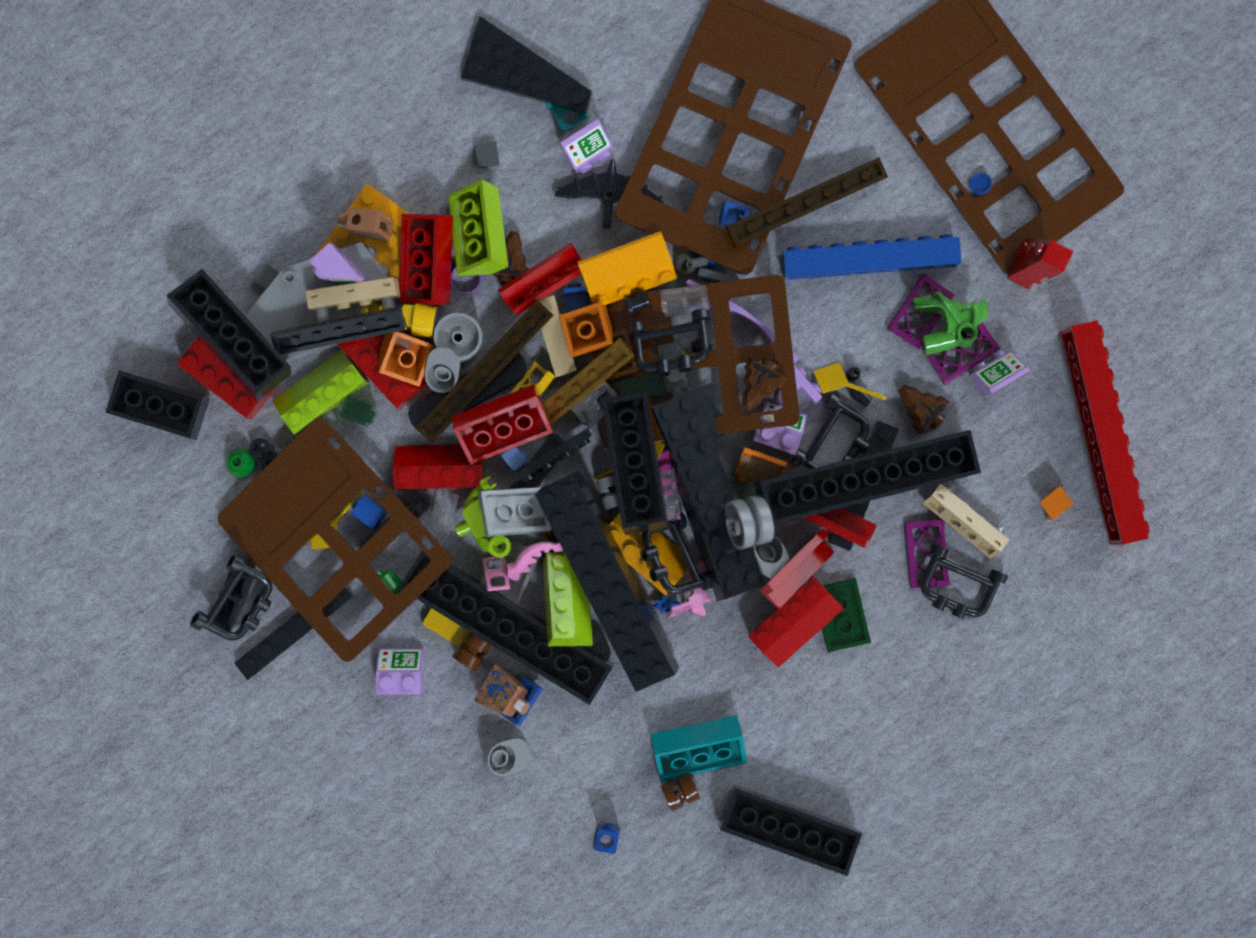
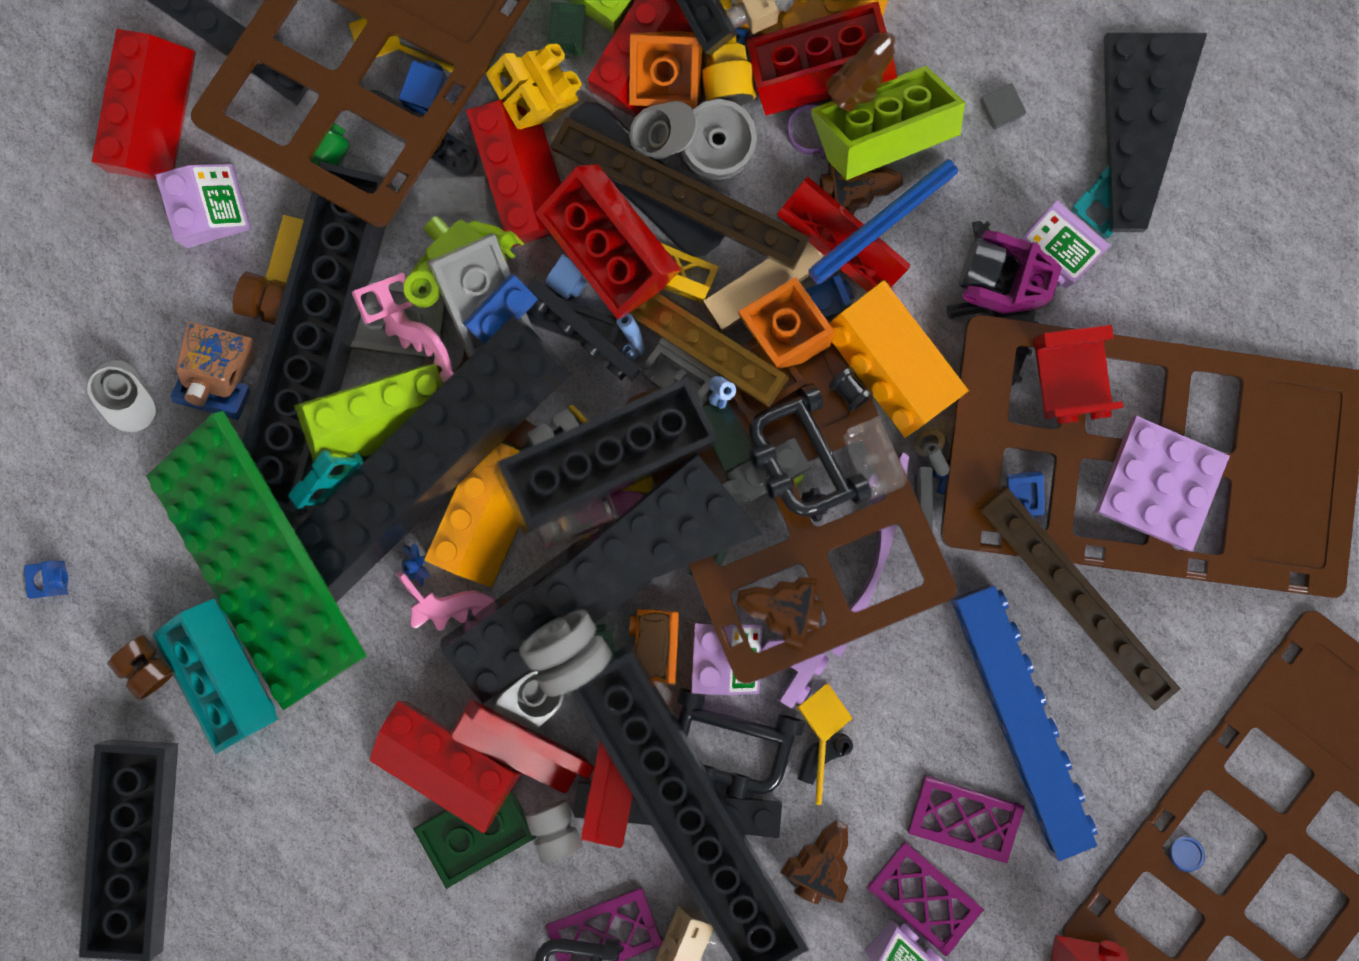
camera: 70 degrees right, 0 degrees up
(327, 691) = (143, 105): none -> red slope
(389, 440) = (535, 85): none -> yellow hips
(447, 236) = (862, 73): none -> reddish brown rock
(526, 502) = (507, 300): none -> blue plate
(539, 251) = (882, 221): none -> blue axle
(568, 427) = (632, 333): none -> light blue arm
(585, 197) = (1033, 281): none -> magenta piece
(598, 642) = (319, 478): none -> teal piece
(616, 381) = (722, 391): none -> light blue arm
(637, 700) = (254, 562): none -> green plate
(659, 572) = (451, 540): black bar -> none
(669, 163) = (1075, 374): none -> red panel
(751, 130) = (1162, 483): none -> lavender plate
(857, 564) = (553, 830): none -> light grey wheel
(956, 318) = (970, 878): bright green helmet -> none

